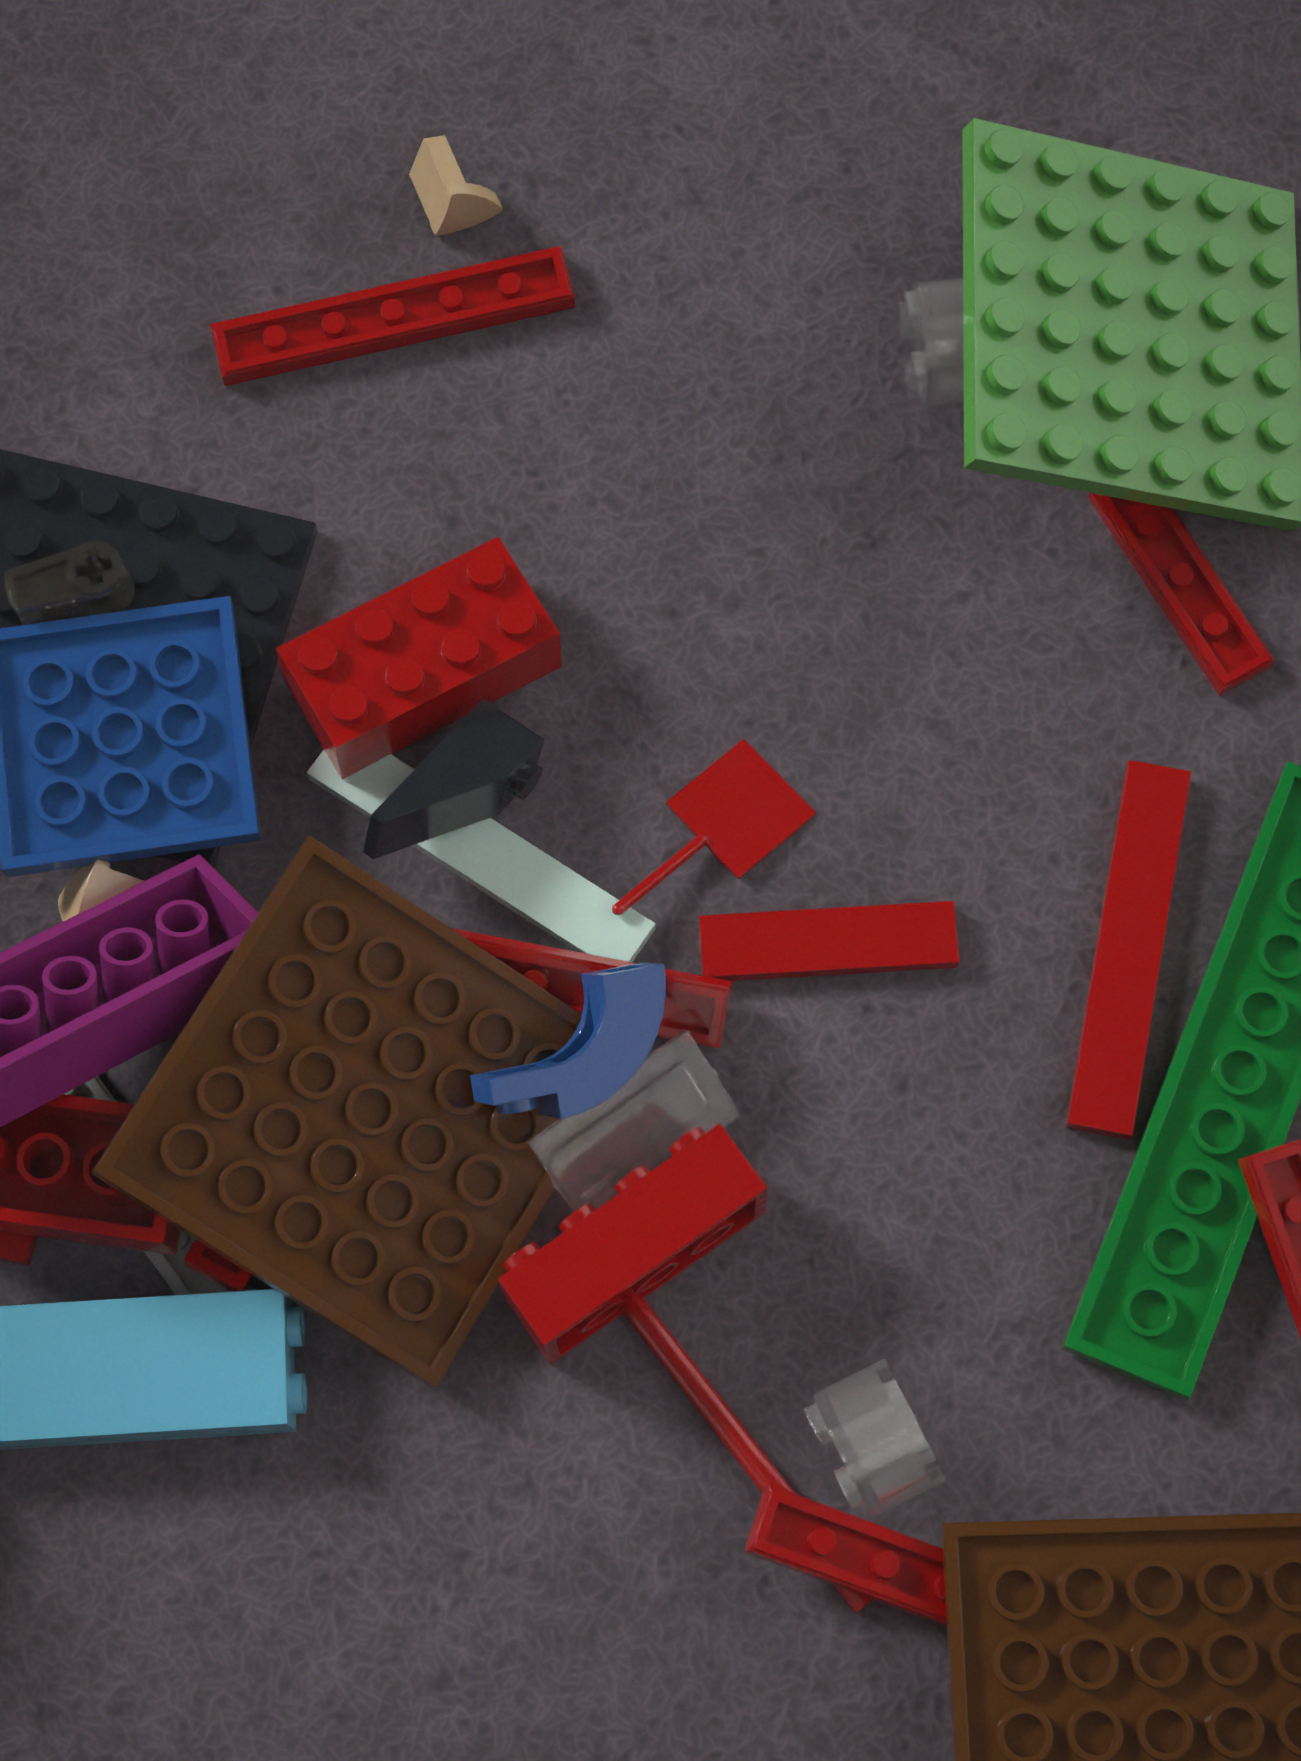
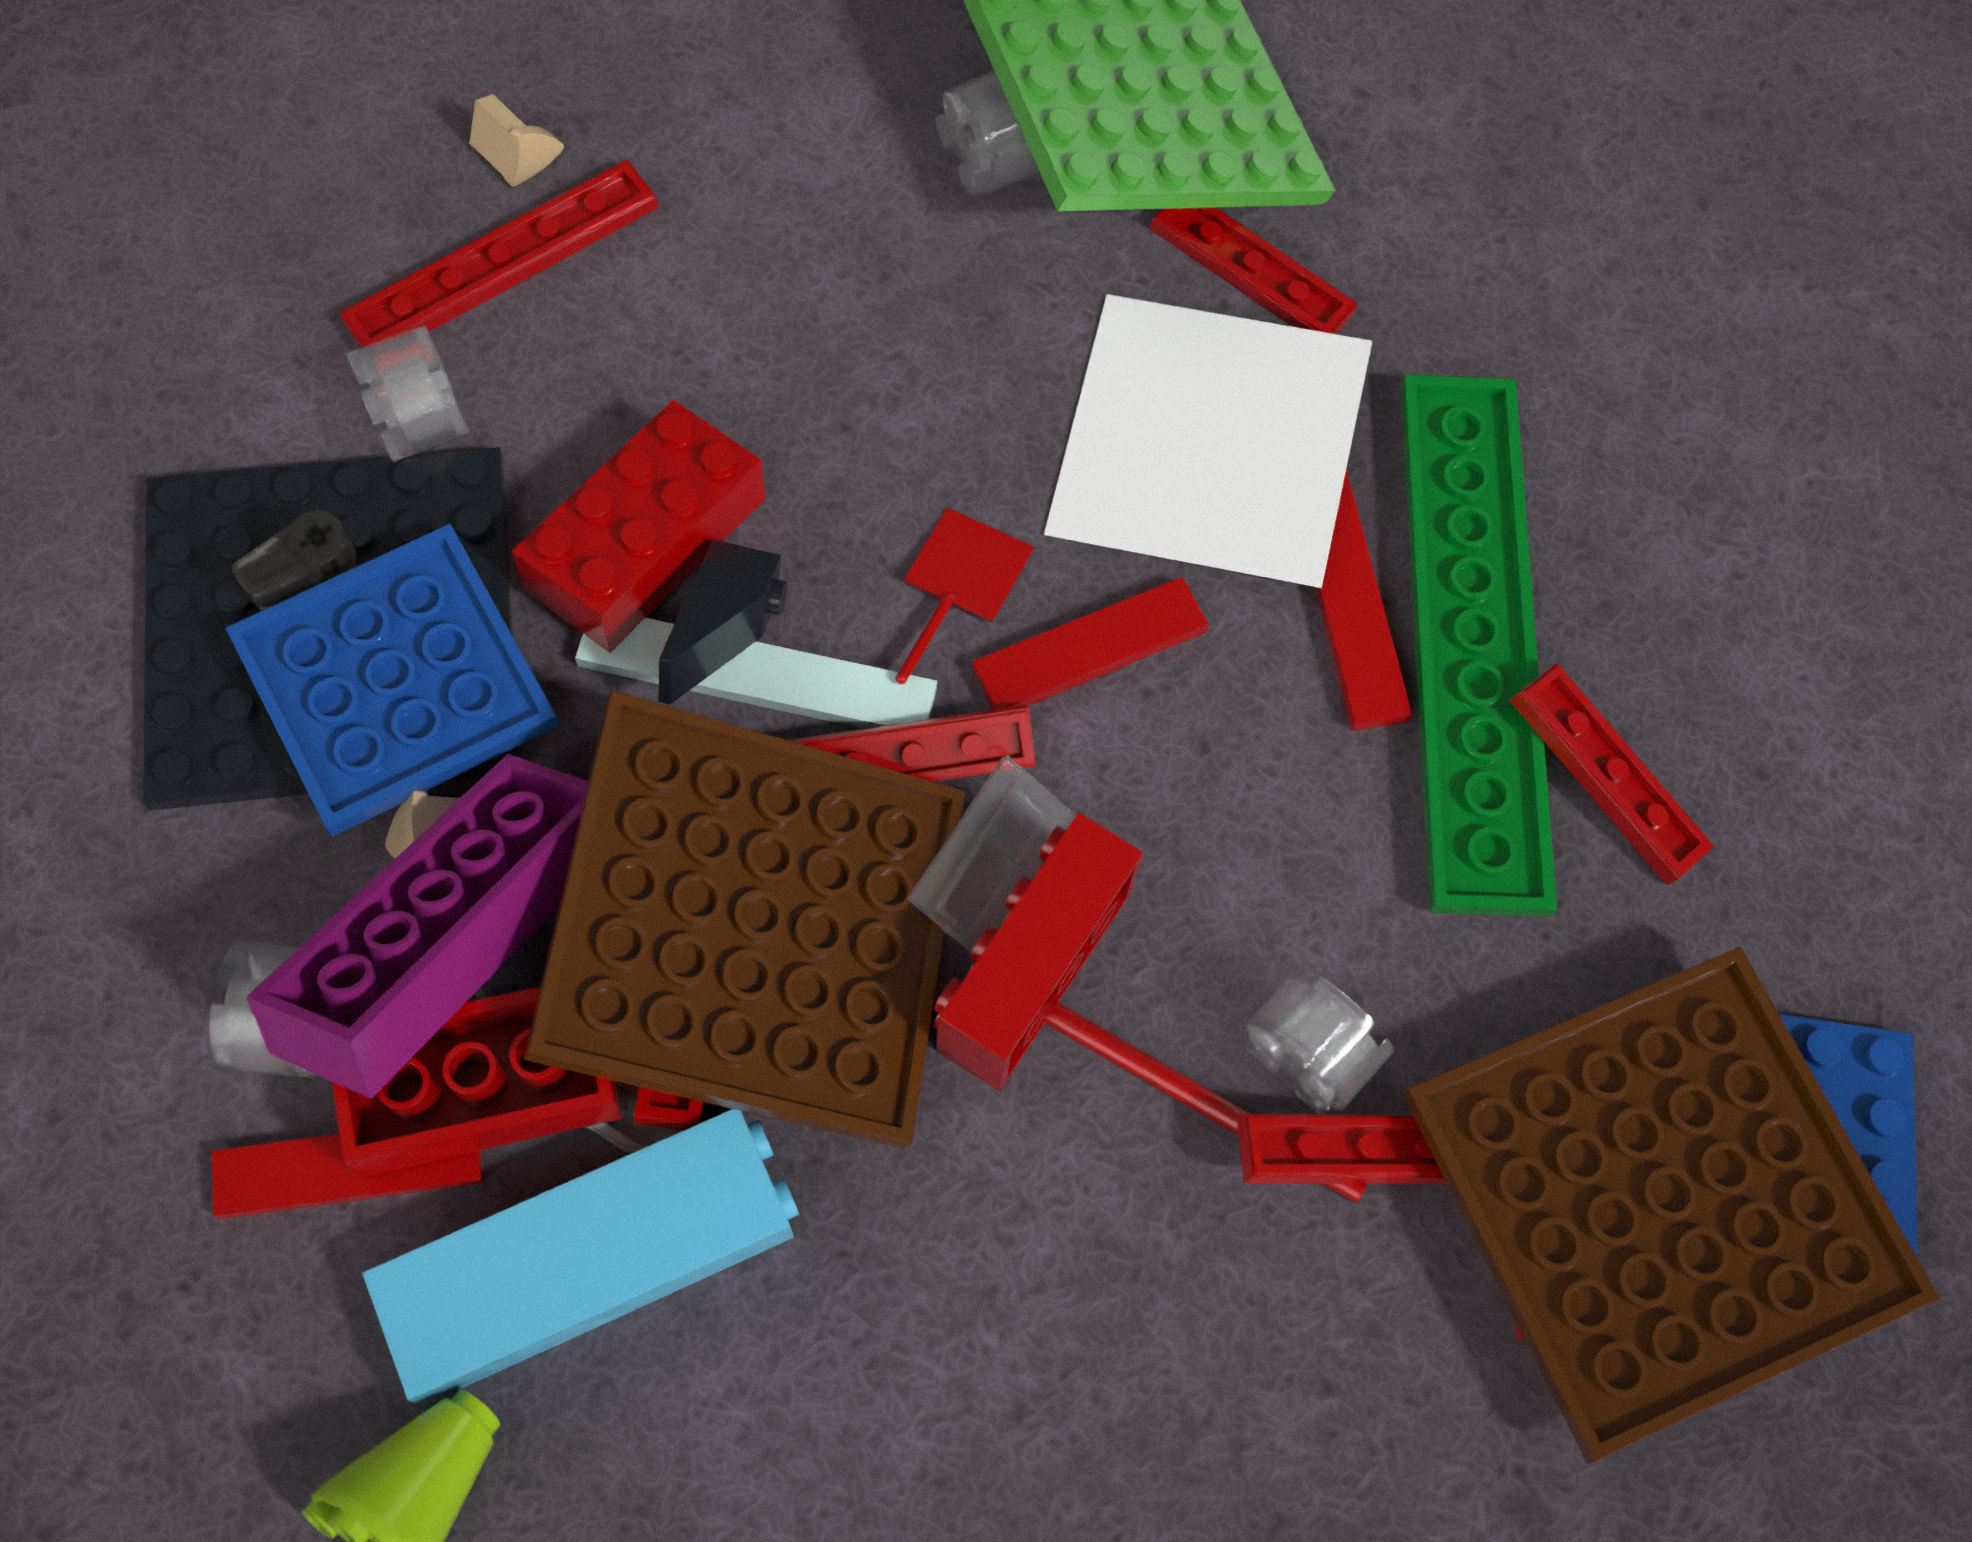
camera: 30 degrees left, 5 degrees down
(243, 440) = (408, 393): none -> clear brick
(604, 1053) = (945, 795): blue arch -> none
(1050, 760) = (1211, 440): none -> white sticker

